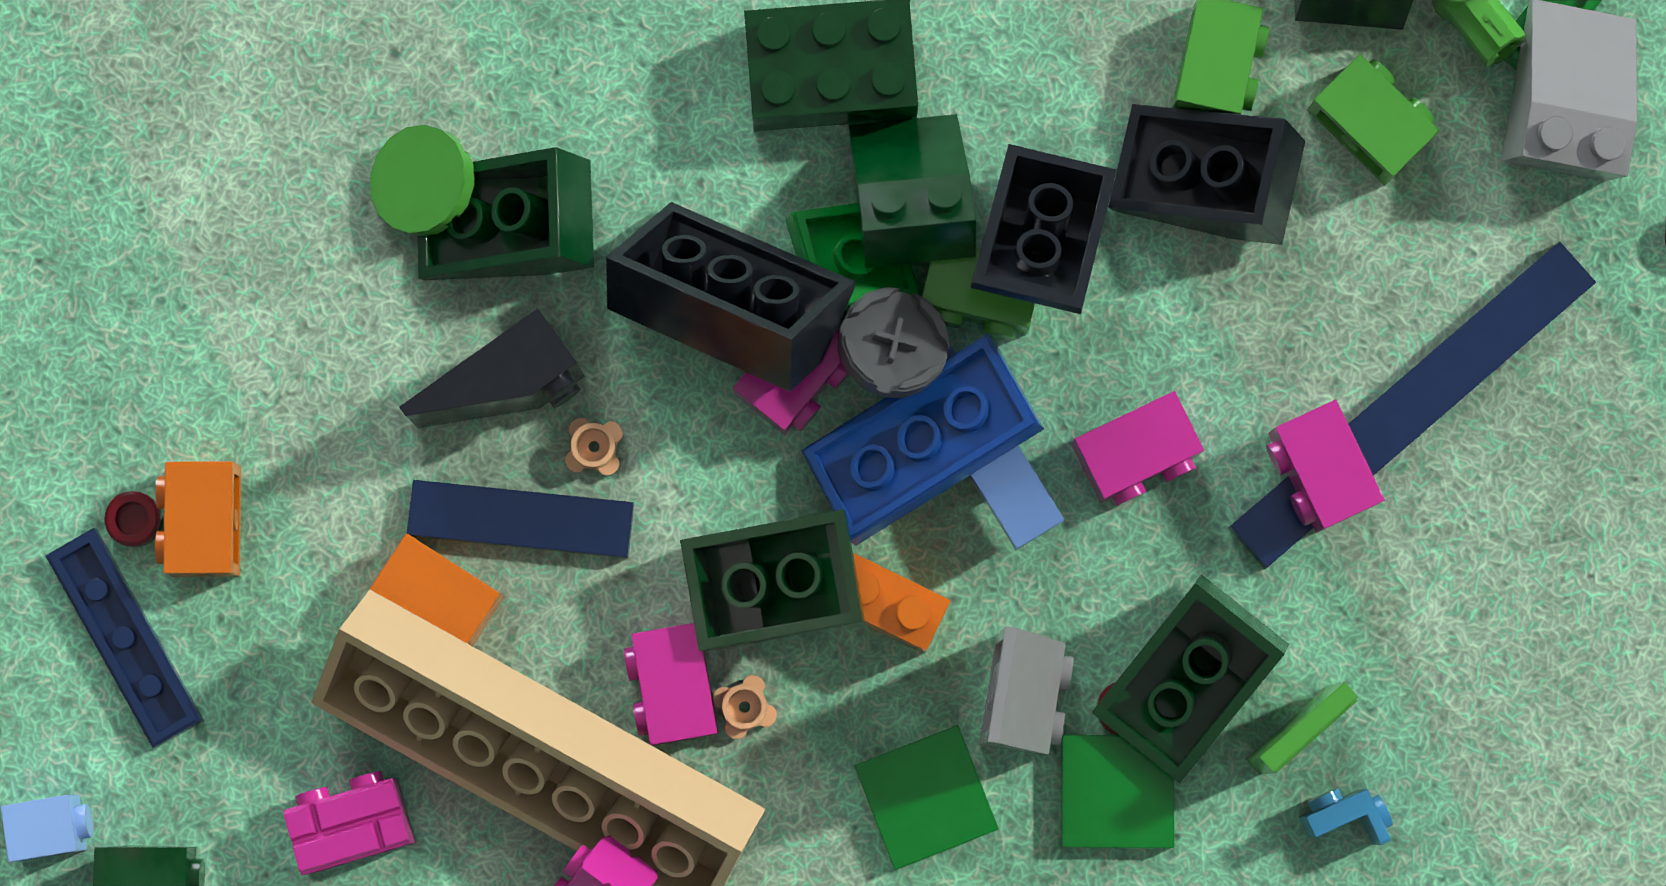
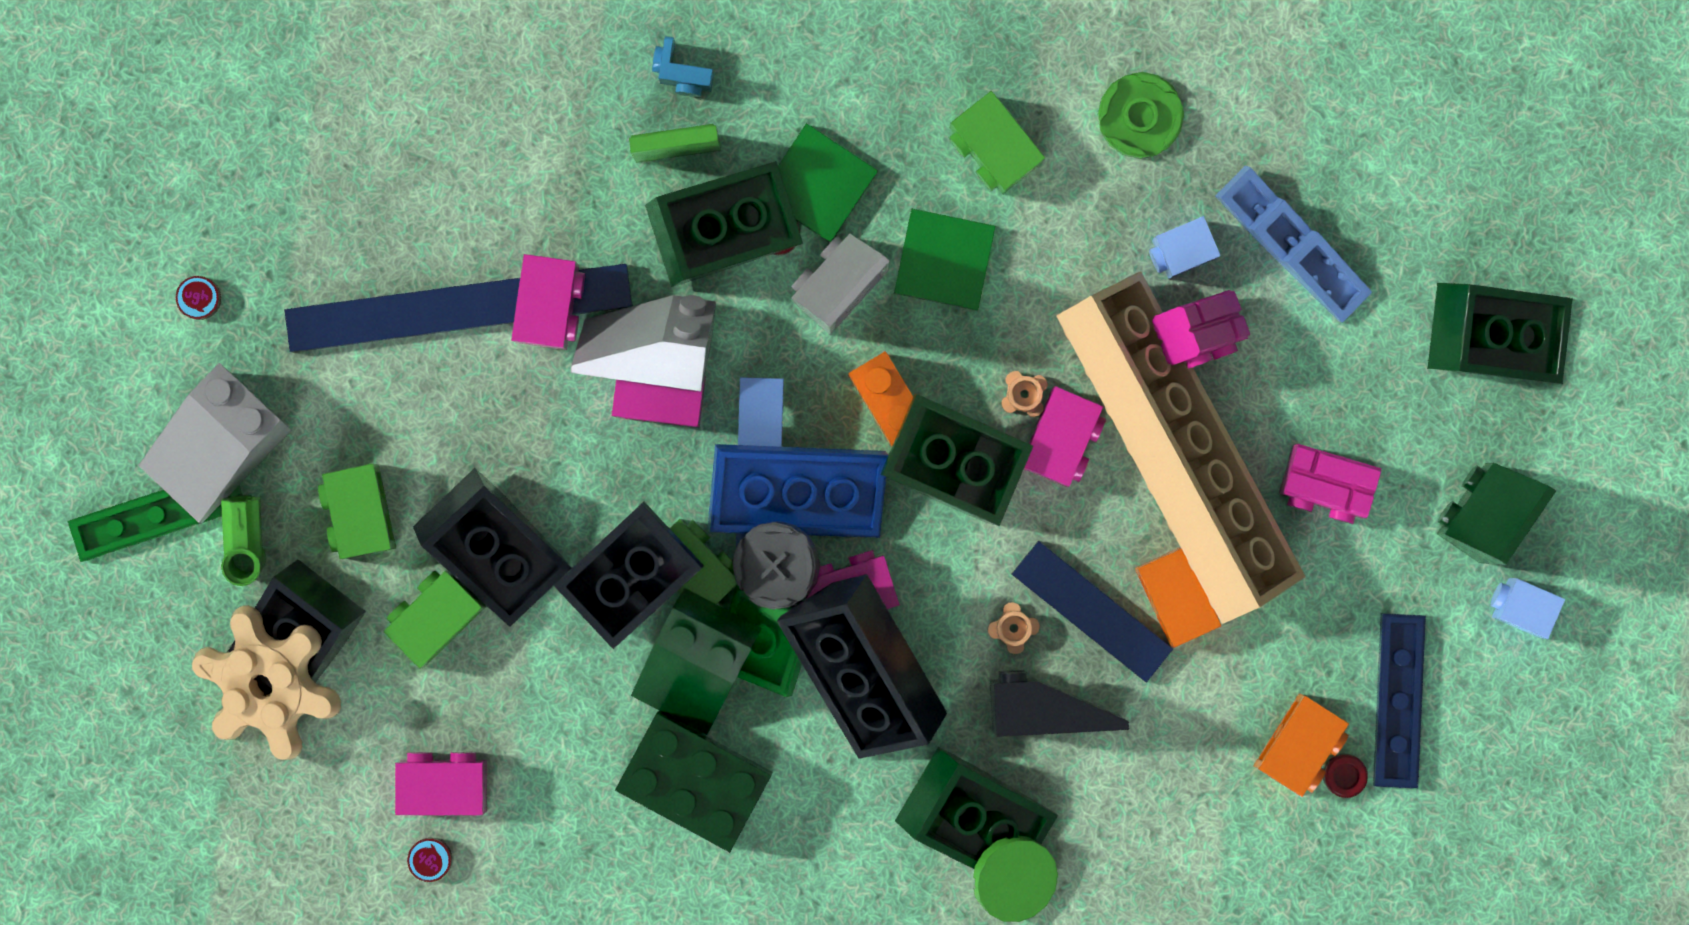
camera: 150 degrees left, 5 degrees up
(1184, 494) = (649, 343): none -> light grey slope

